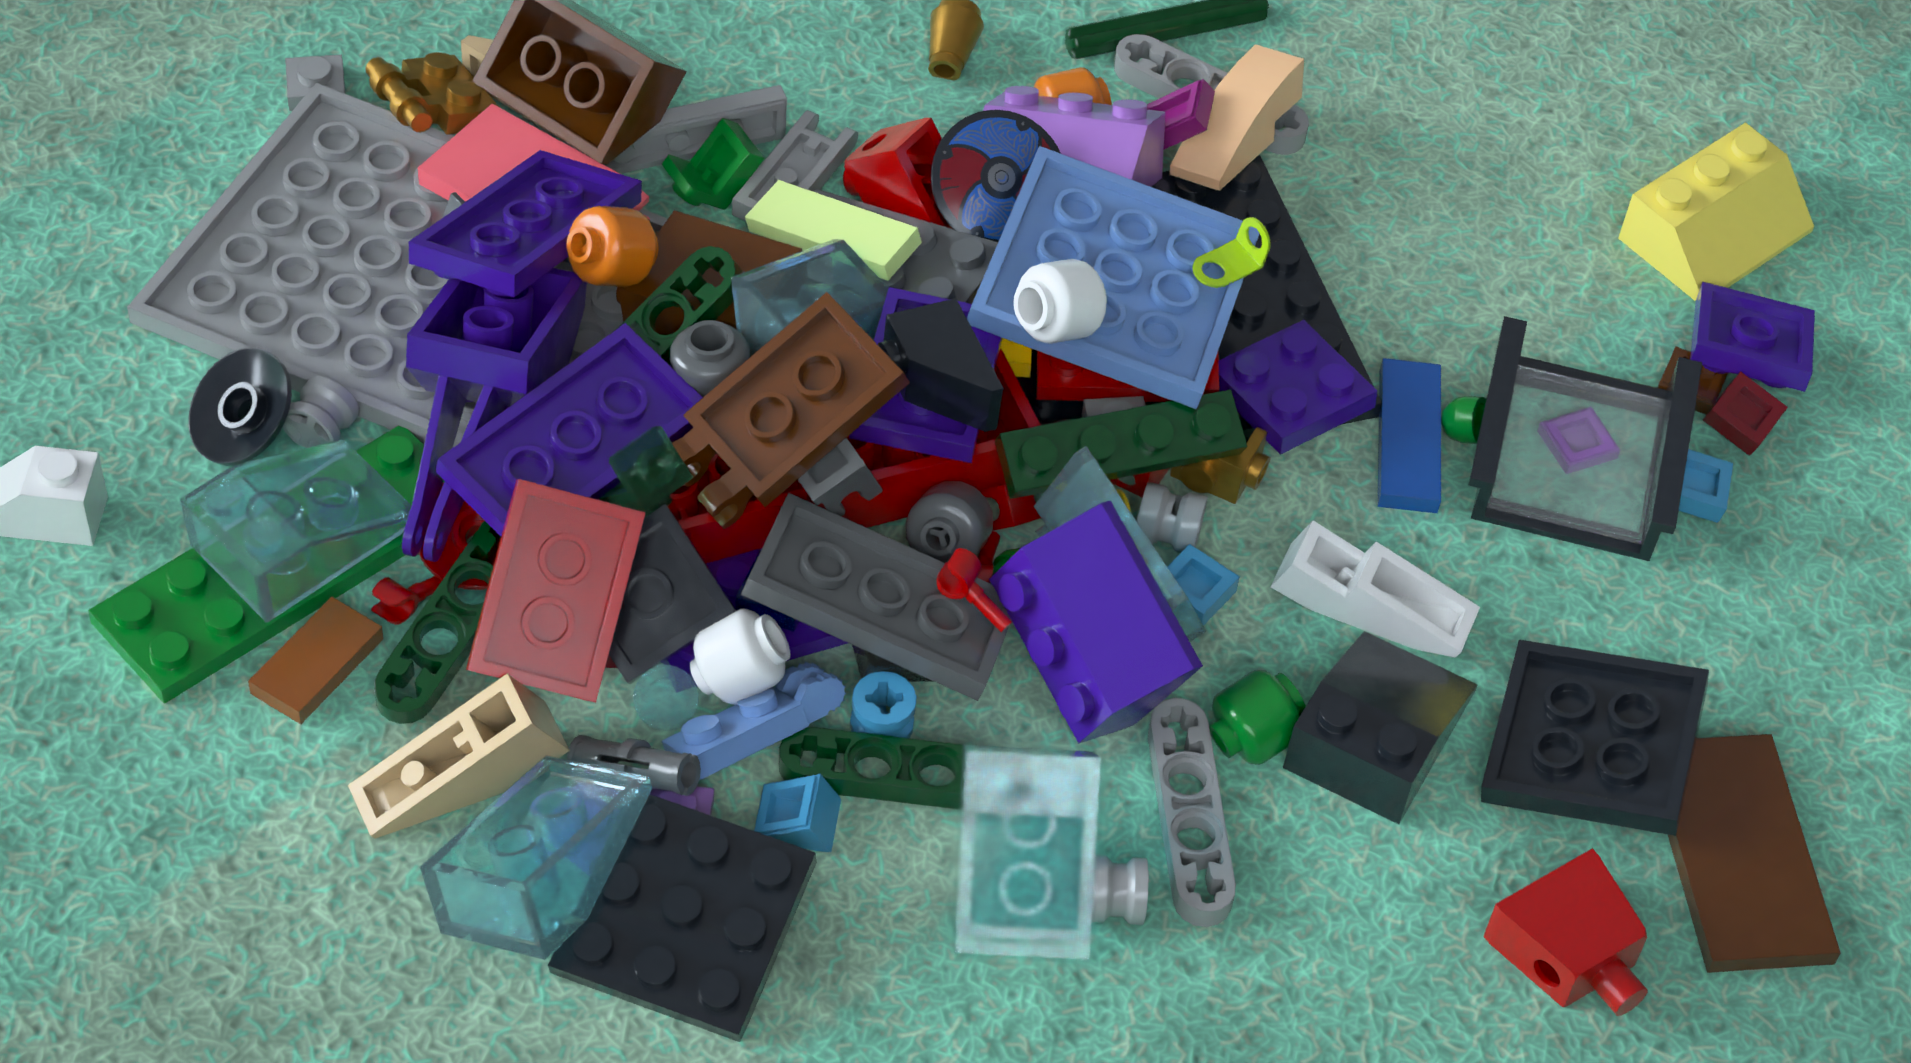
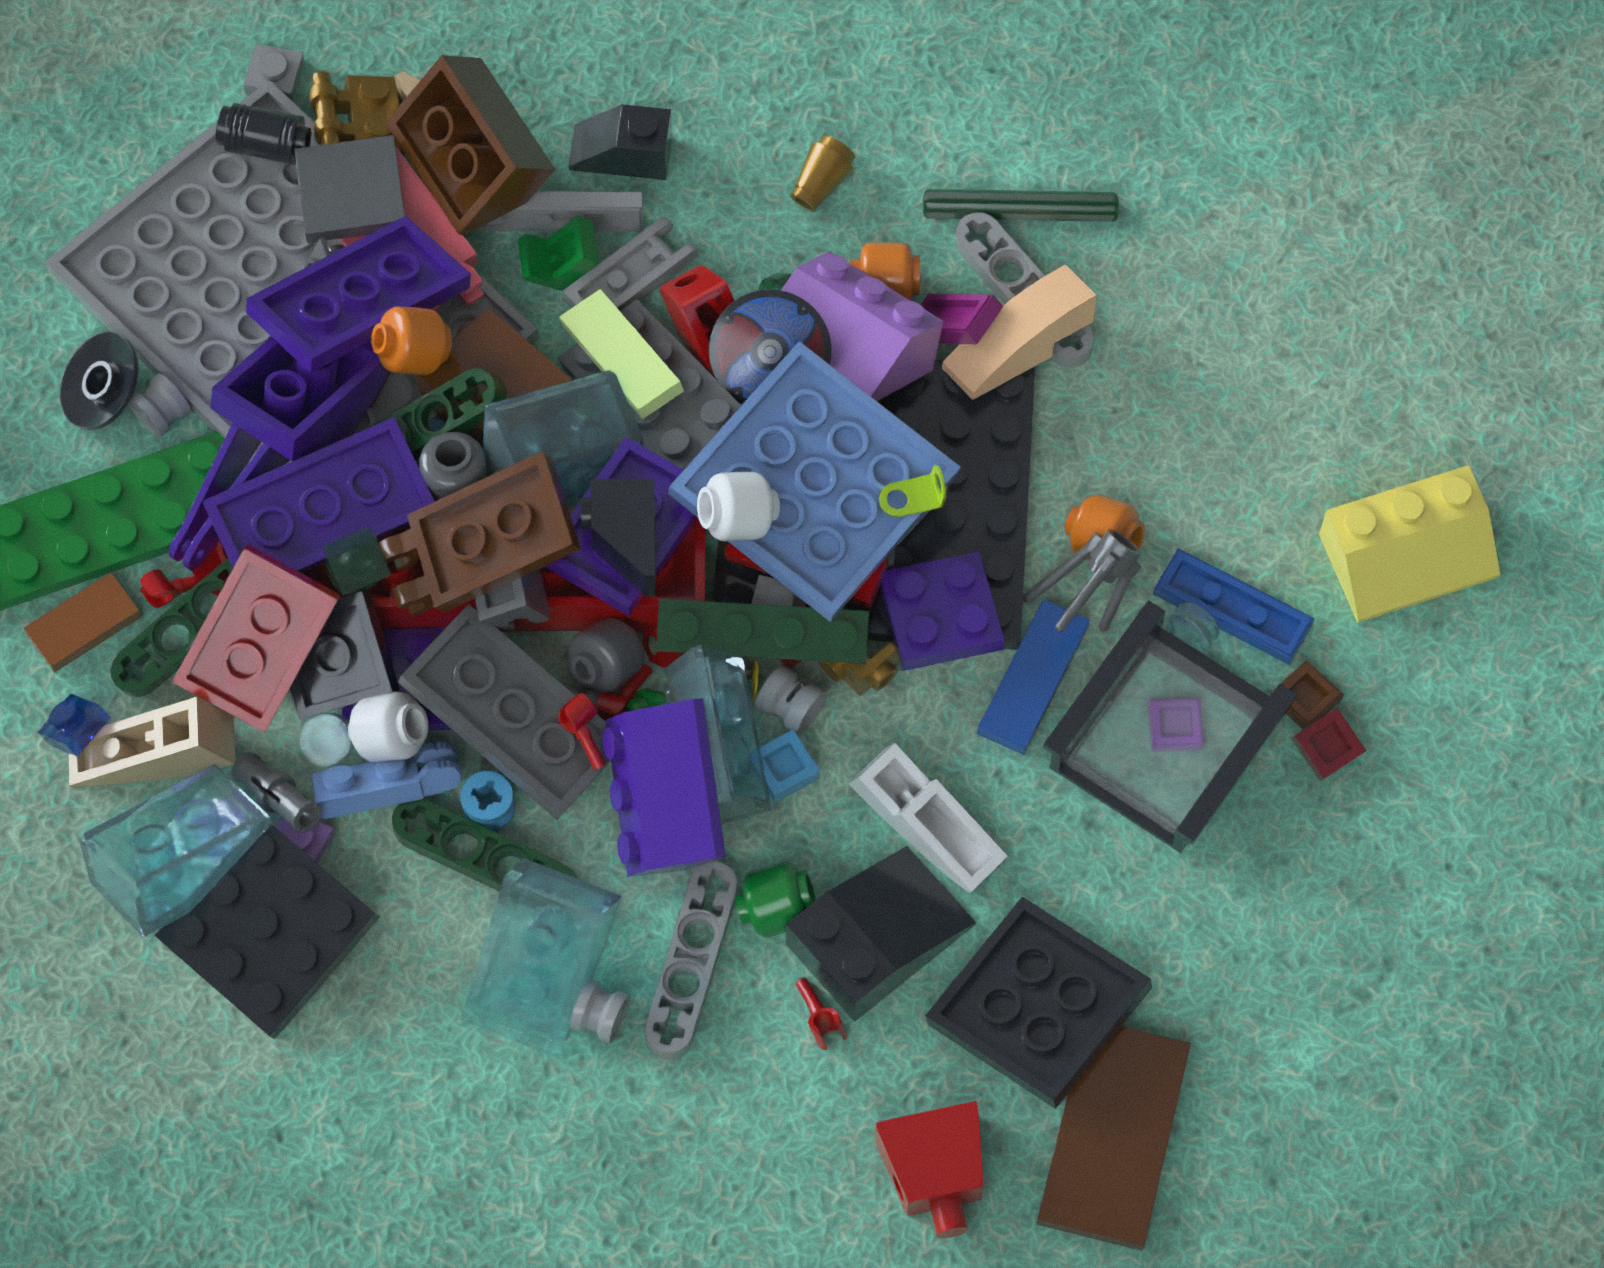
camera: 25 degrees right, 15 degrees up
(292, 522) = (99, 504): clear light blue slope -> none
(337, 122) = (261, 132): none -> black head
(353, 764) = (73, 724): none -> clear blue plate
(457, 145) = (349, 187): none -> dark grey tile
(735, 54) = (624, 142): none -> black slope
(800, 812) = (391, 867): dark azure slope -> none
(1371, 825) = (822, 1018): none -> red hand
(1413, 278) = (1098, 515): none -> orange head
(1446, 290) = (1112, 558): none -> dark grey plant
(1463, 419) = (1079, 674): green hinge -> none
(1551, 340) = (1193, 626): none -> clear light blue tile
(1577, 319) = (1235, 606): none -> blue tile
(1705, 486) = (1253, 800): dark azure plate -> none
(1753, 336) = (1373, 673): dark purple plate -> none

